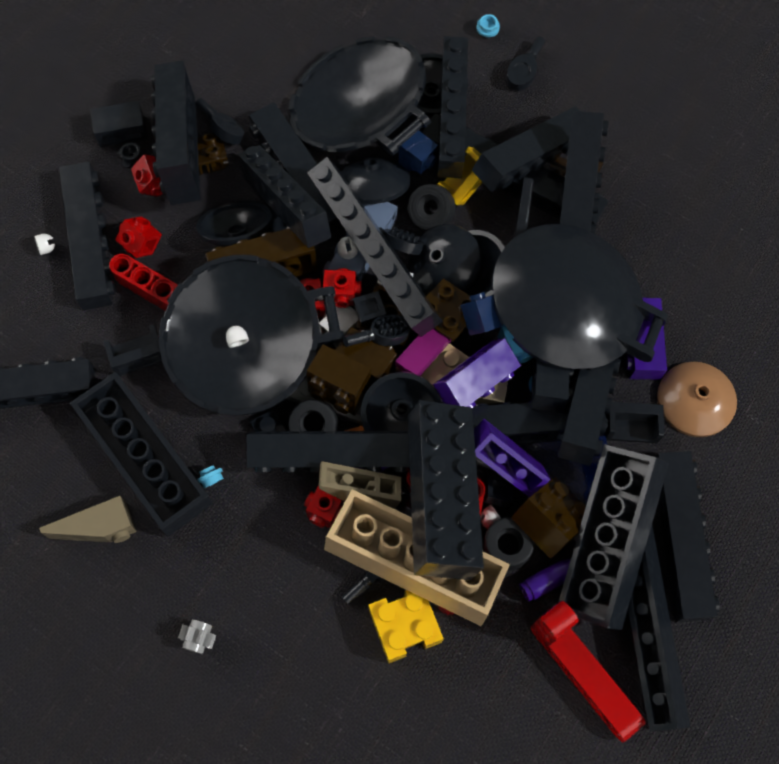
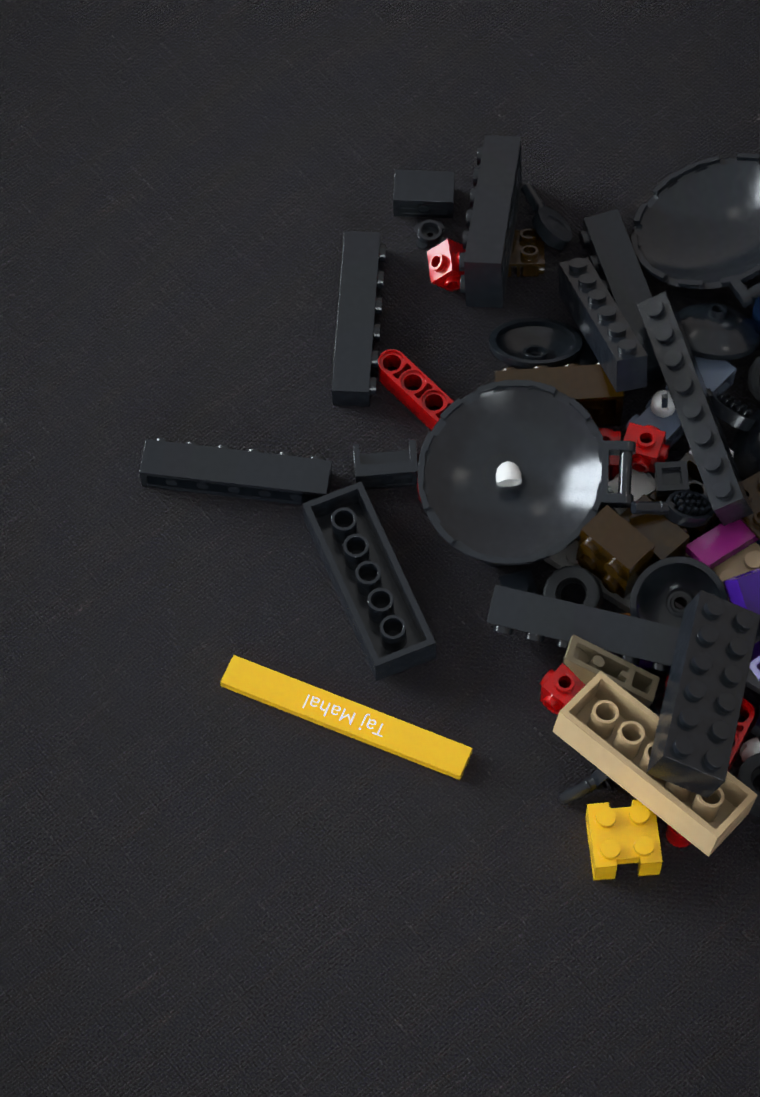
camera: 20 degrees right, 5 degrees down
(42, 243) = (303, 316): white hinge -> none
(100, 523) = (301, 645): dark tan slope -> none
(138, 237) = (418, 334): red brick -> none
(148, 575) = (346, 717): none -> yellow tile
(197, 636) = (386, 793): light grey gear -> none
(210, 476) = (441, 625): medium azure plate -> none

